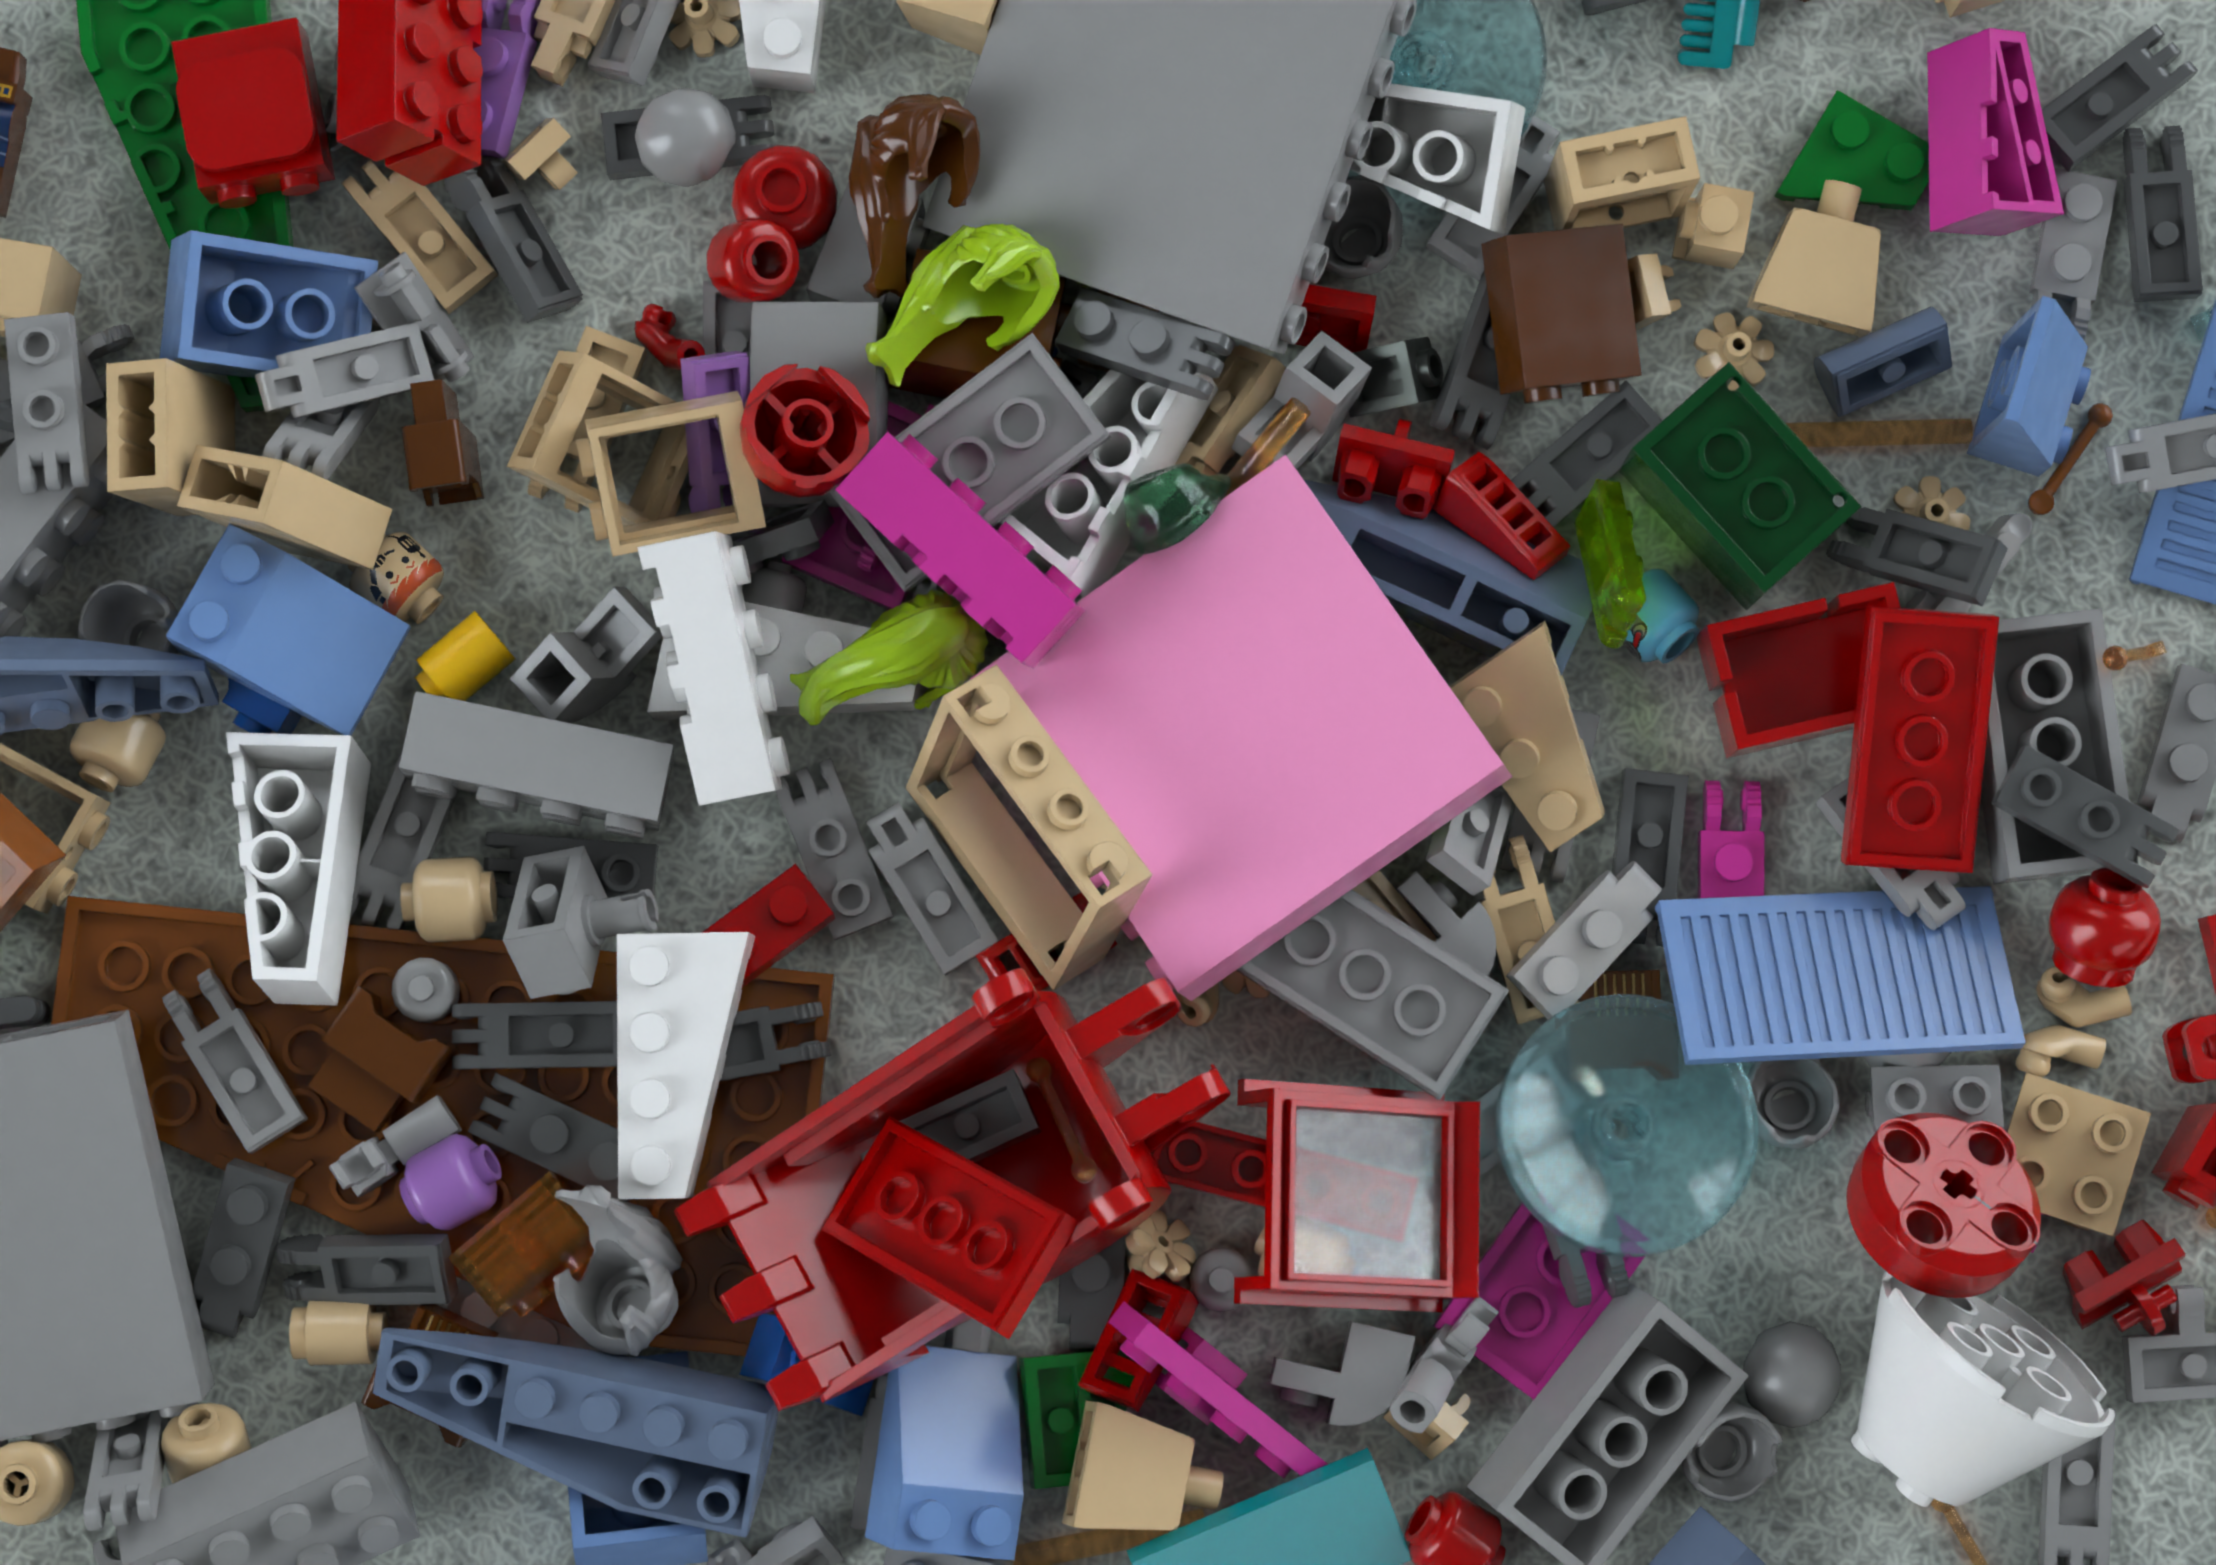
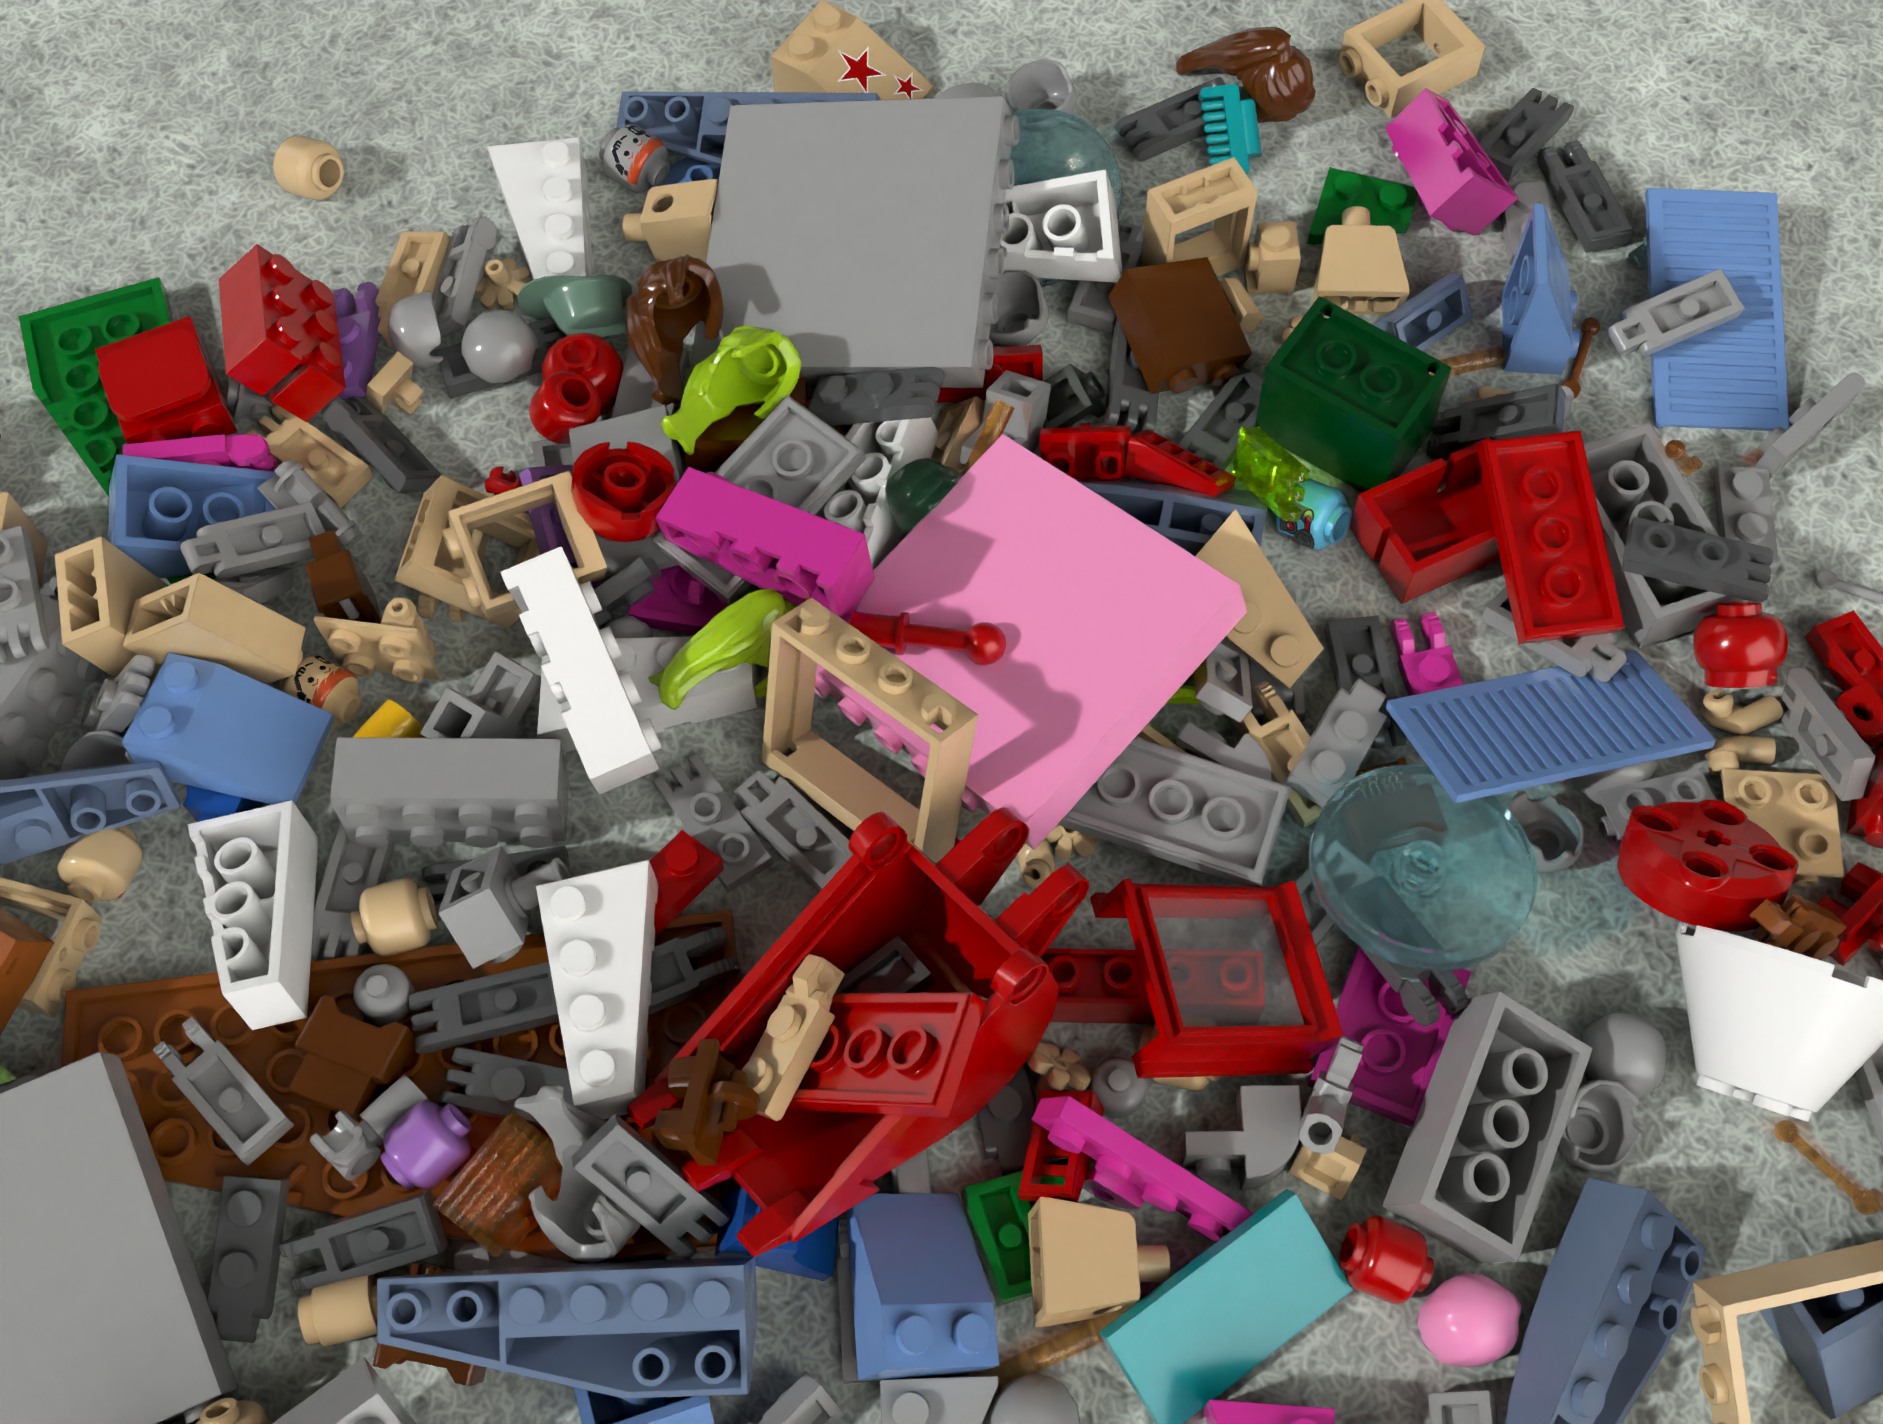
camera: 10 degrees left, 20 degrees down
(157, 553) = (119, 698): none -> light grey hinge
(288, 226) = (219, 450): none -> dark pink hinge
(505, 549) = (393, 647): none -> tan hinge
(581, 90) = (416, 330): none -> light grey hair
(681, 1304) = (648, 1186): none -> dark grey hinge
(767, 1237) = (712, 1103): none -> reddish brown hips
(801, 107) = (578, 303): none -> sand green piece
(863, 1180) = (793, 1036): none -> tan hinge
(1189, 743) = (982, 642): none -> red pin
(2020, 1303) = (1798, 926): none -> dark orange hinge
(2158, 1065) = (1826, 735): none -> light grey hinge

